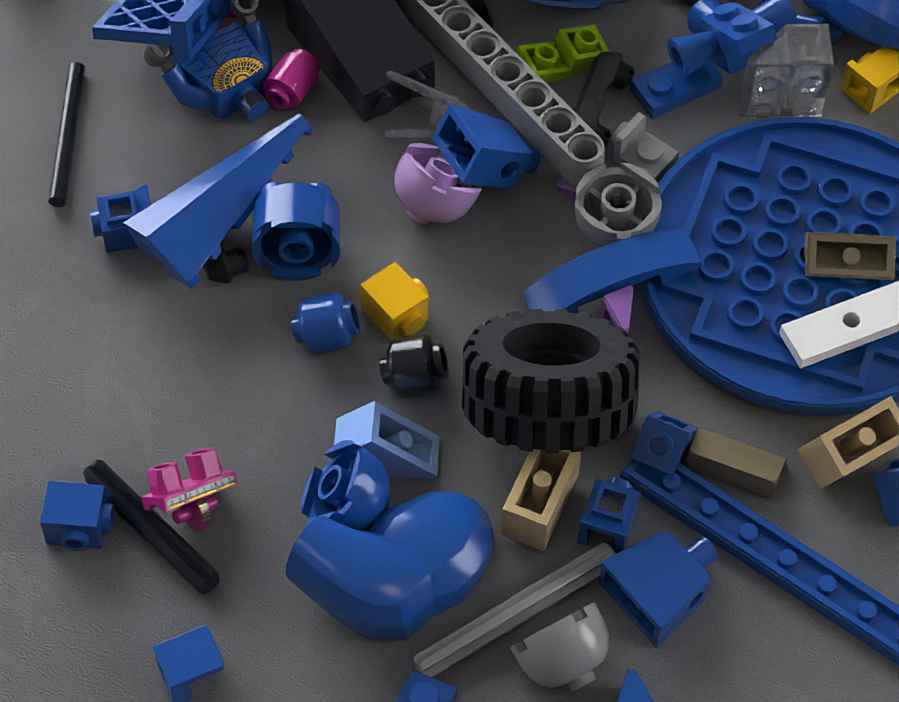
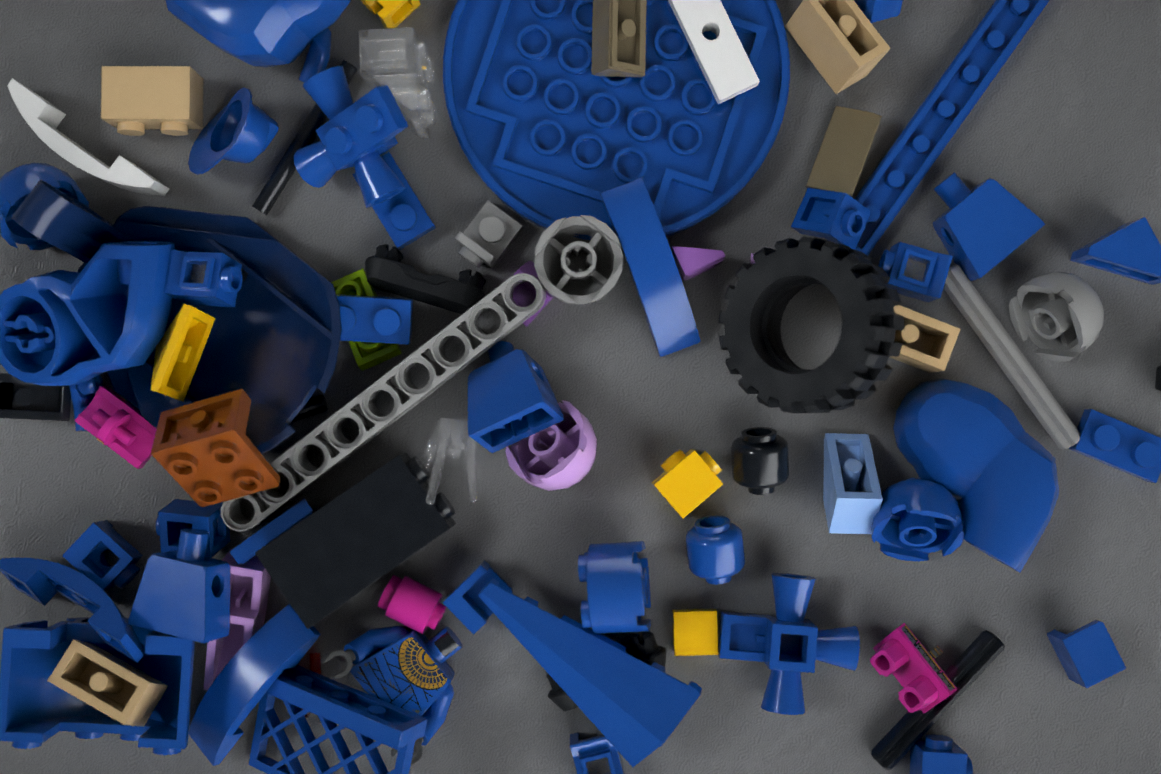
camera: 90 degrees left, 30 degrees up
(226, 380) = (787, 643): none -> blue brick
(242, 311) = (695, 632): none -> yellow tile
(307, 145) = (465, 600): none -> blue panel
(562, 45) = (375, 319): none -> blue plate

